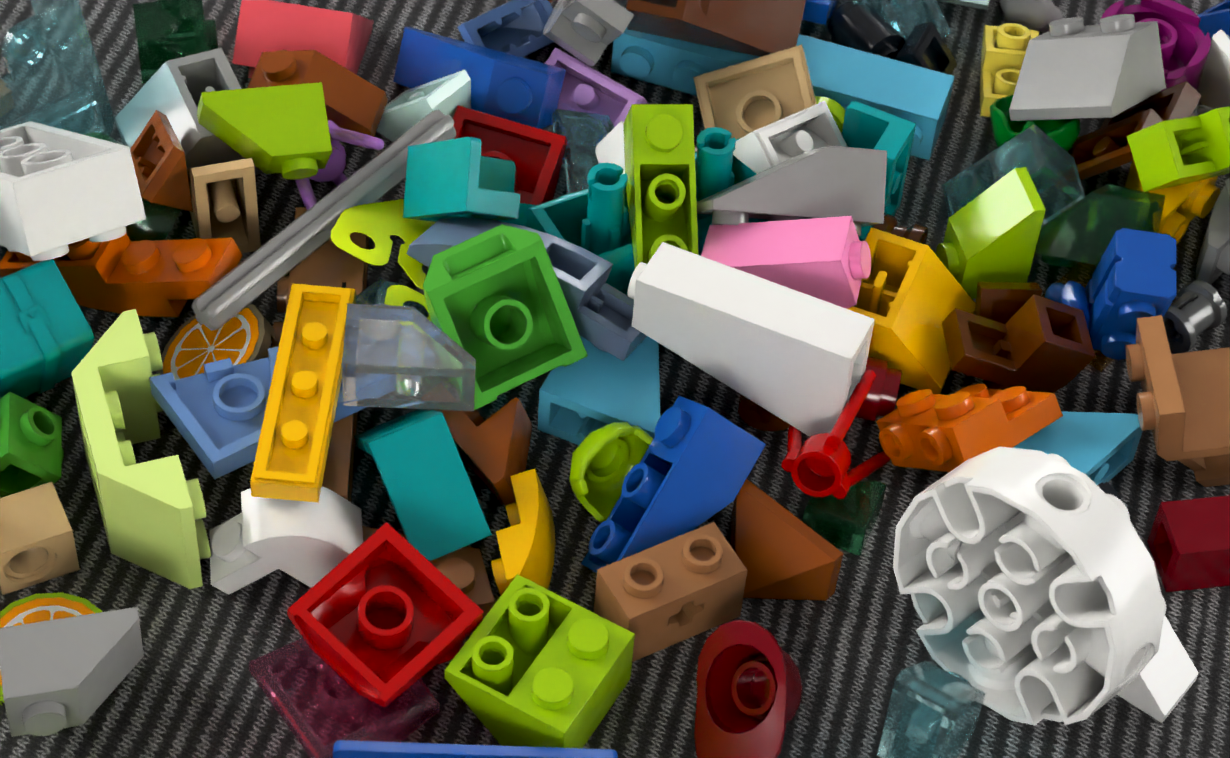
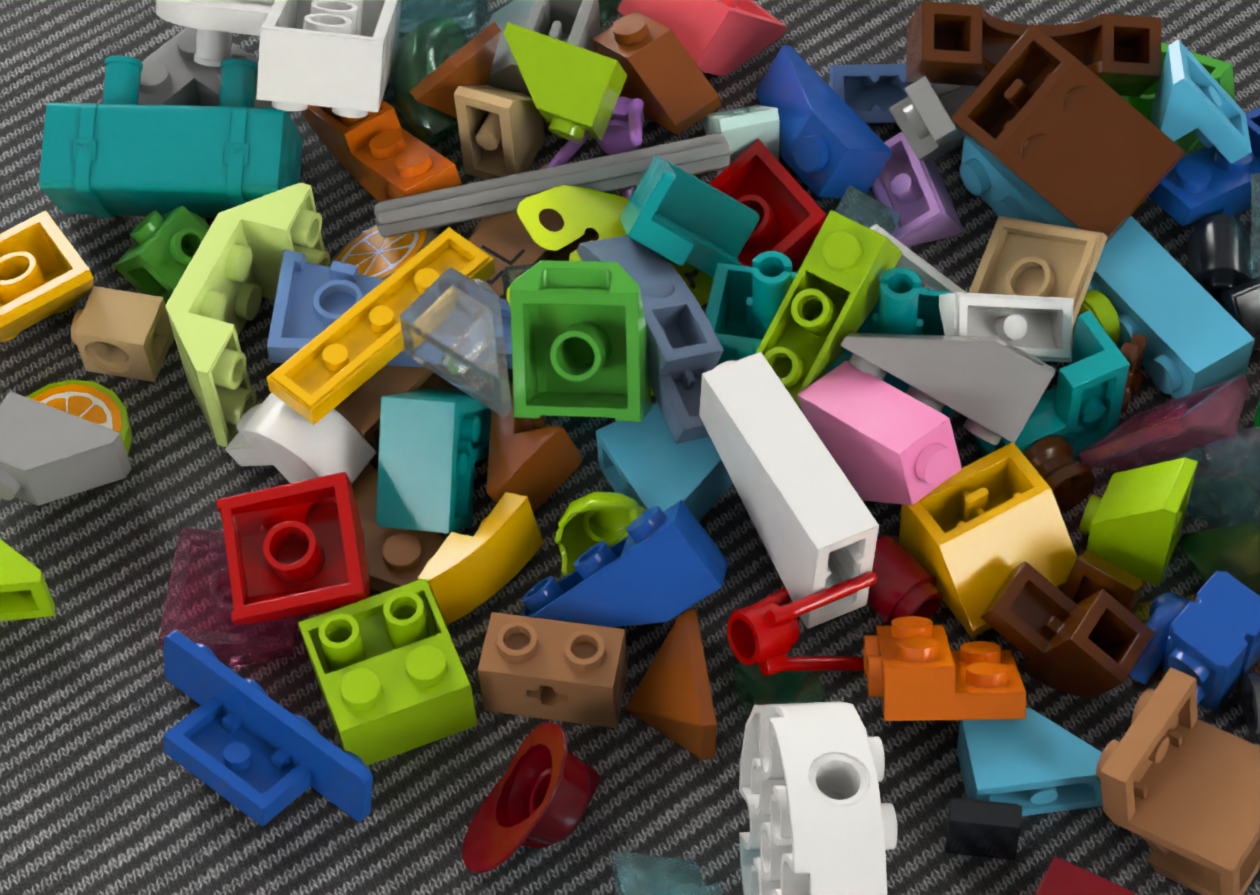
camera: 45 degrees right, 5 degrees up
(957, 163) = (1171, 428): none -> clear pink slope

